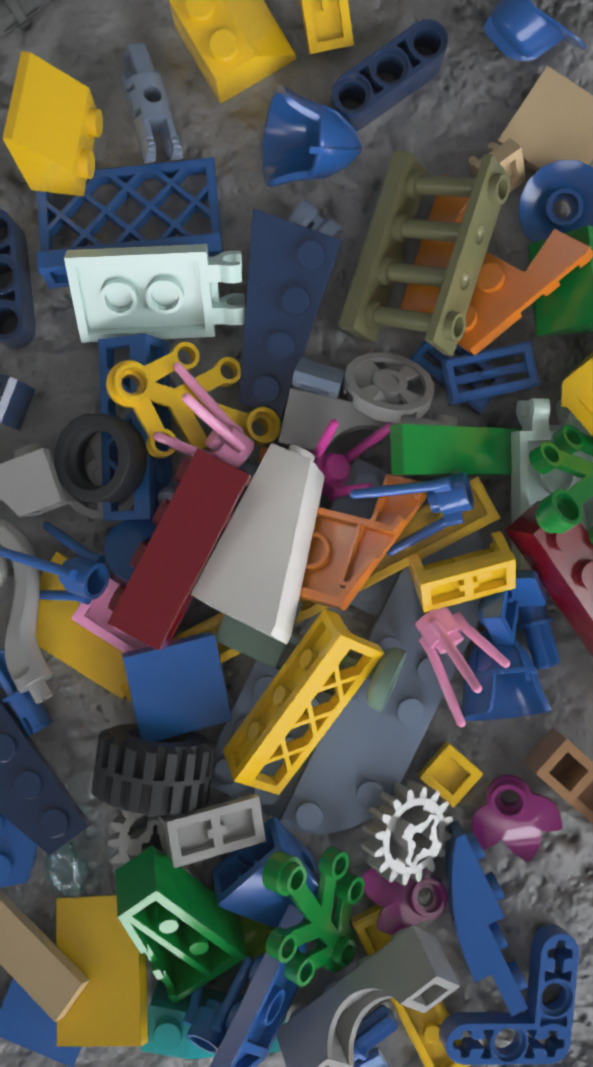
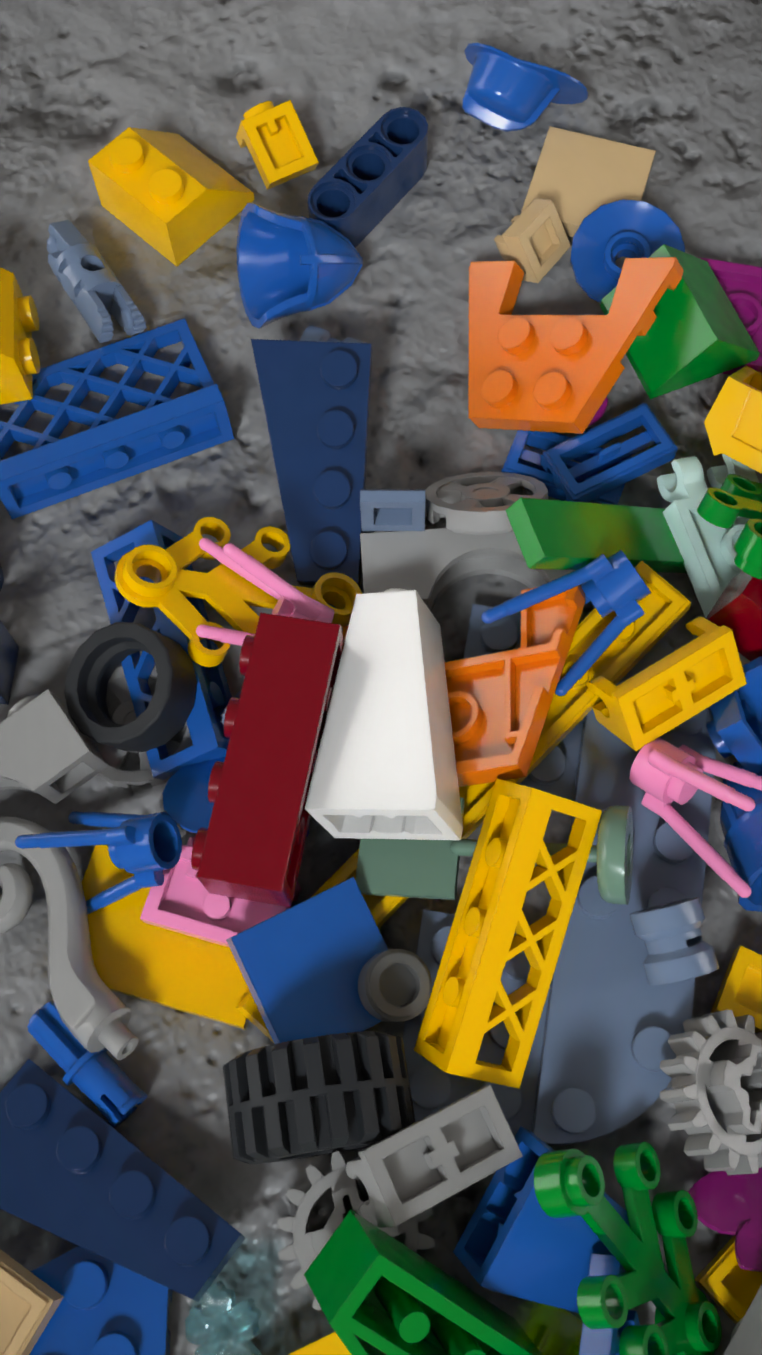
camera: 15 degrees left, 20 degrees down
(153, 291) = (146, 467): light aqua tile -> none
(221, 710) = (395, 985): none -> dark grey tile
(337, 467) = (453, 615): dark pink plant -> none
(392, 229) = (430, 324): olive fence -> none
(404, 741) = (674, 941): none -> sand blue wheel

